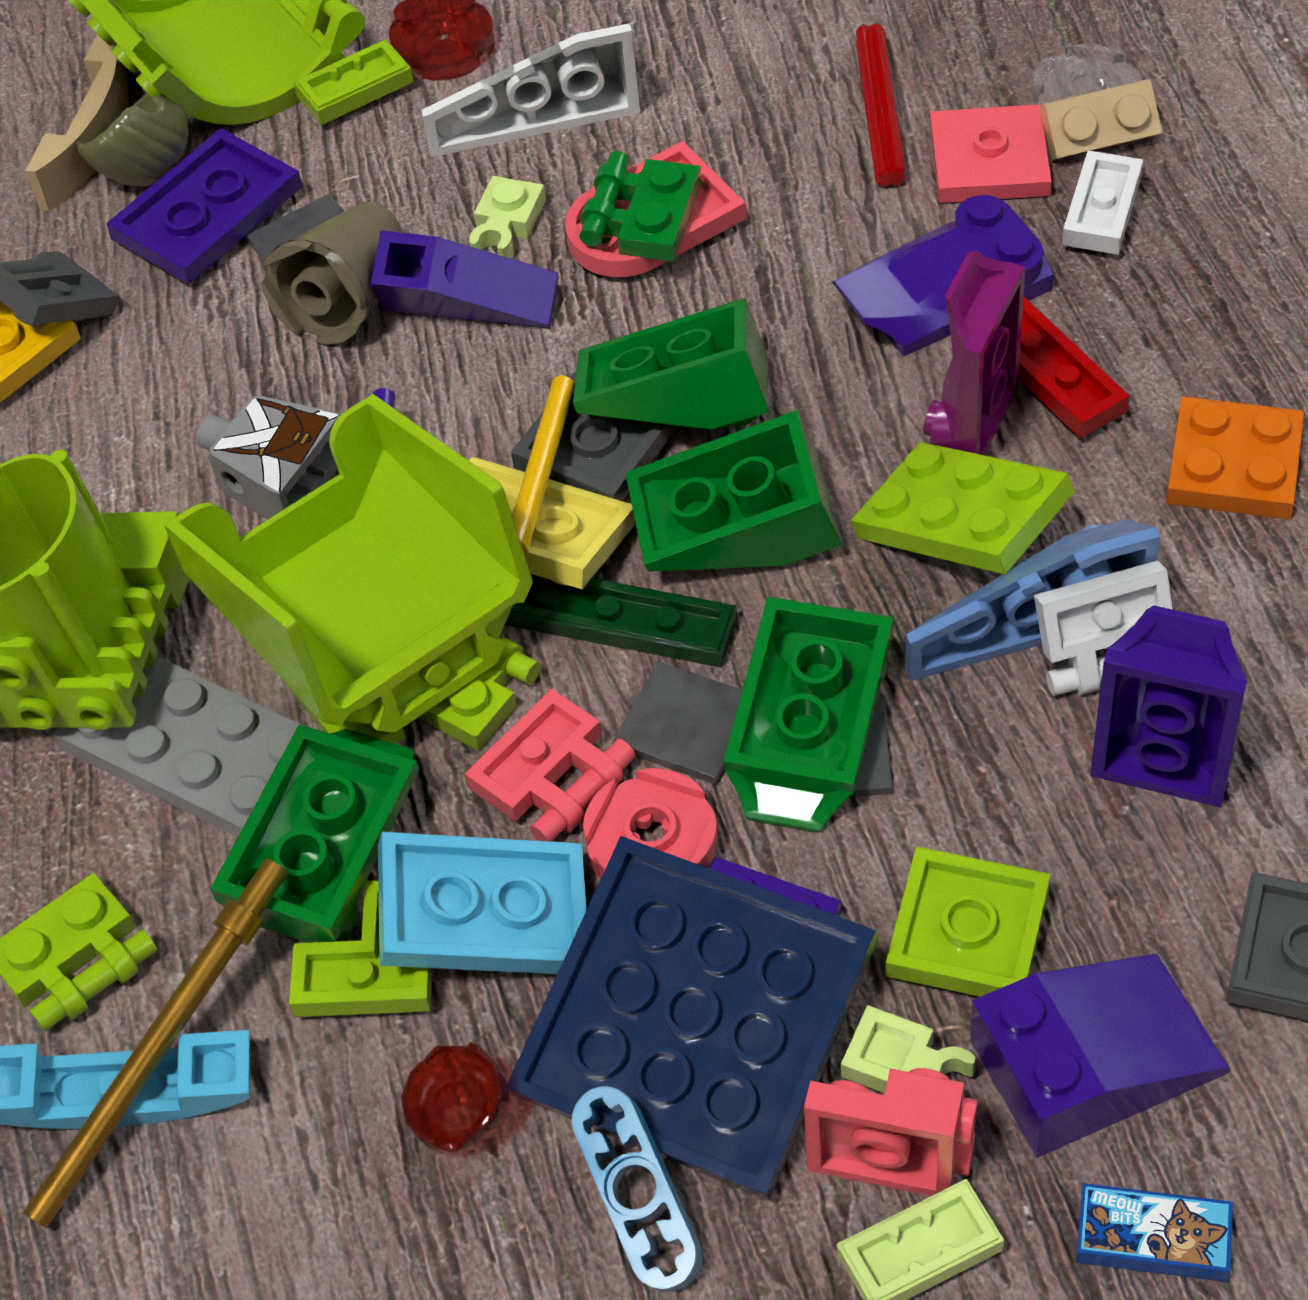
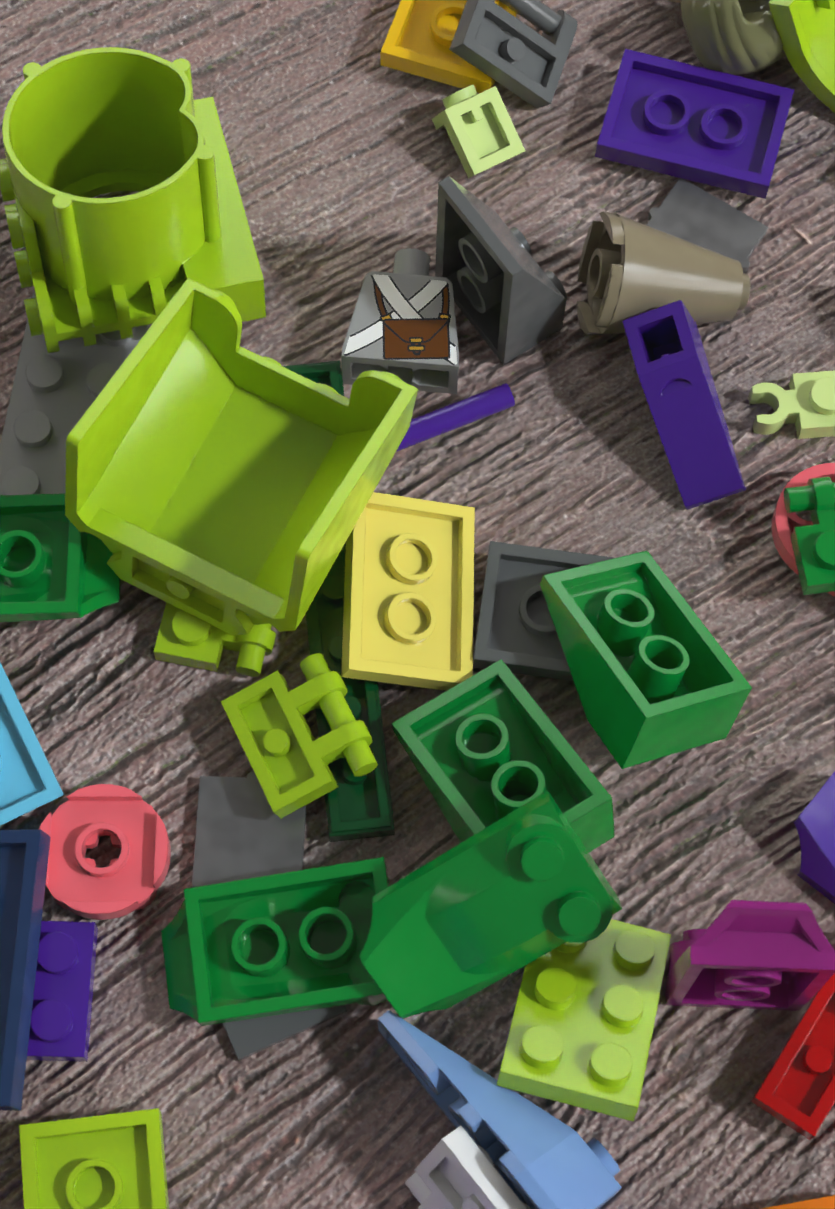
camera: 60 degrees right, 15 degrees up
(111, 346) = (479, 129): none -> yellowish green bracket
(268, 348) = (494, 275): none -> dark grey slope
(536, 754) = (148, 712): coral plate -> none
(542, 458) = (461, 576): yellow bar -> none
(618, 654) = (280, 743): none -> lime plate
(852, 513) = (486, 910): none -> green slope

